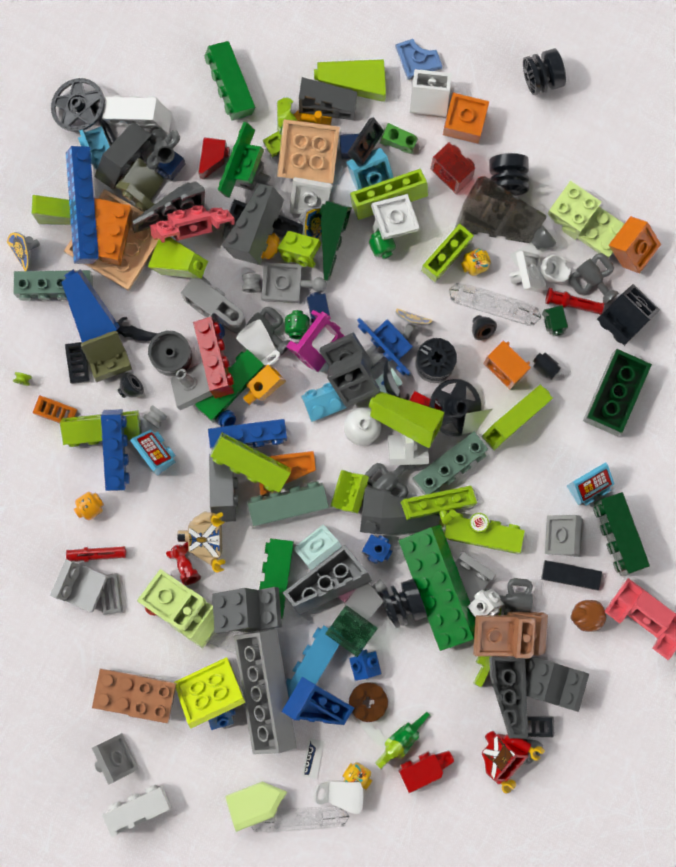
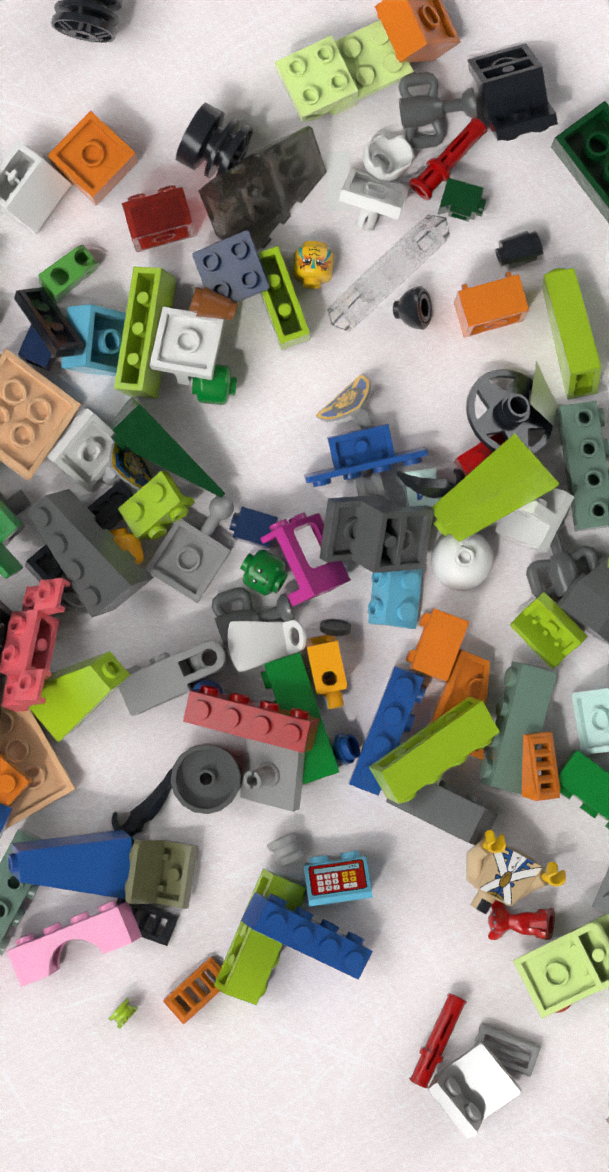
camera: 60 degrees left, 5 degrees up
(60, 343) = (107, 930): none -> bright pink arch
(88, 505) = (364, 1014): light orange head -> none
(130, 386) = (221, 861): black brick -> none
(251, 283) = (165, 604): light grey wheel -> none
(270, 534) = (549, 774): none -> orange slope
(288, 378) = (335, 627): none -> pearl dark grey piece
(308, 435) = (437, 644): none -> orange container
(422, 217) = (212, 304): none -> dark orange cone
(431, 370) = (410, 409): black wheel -> none
(445, 219) = (232, 267): none -> bracket
(543, 239) = (334, 149): dark grey brick -> none

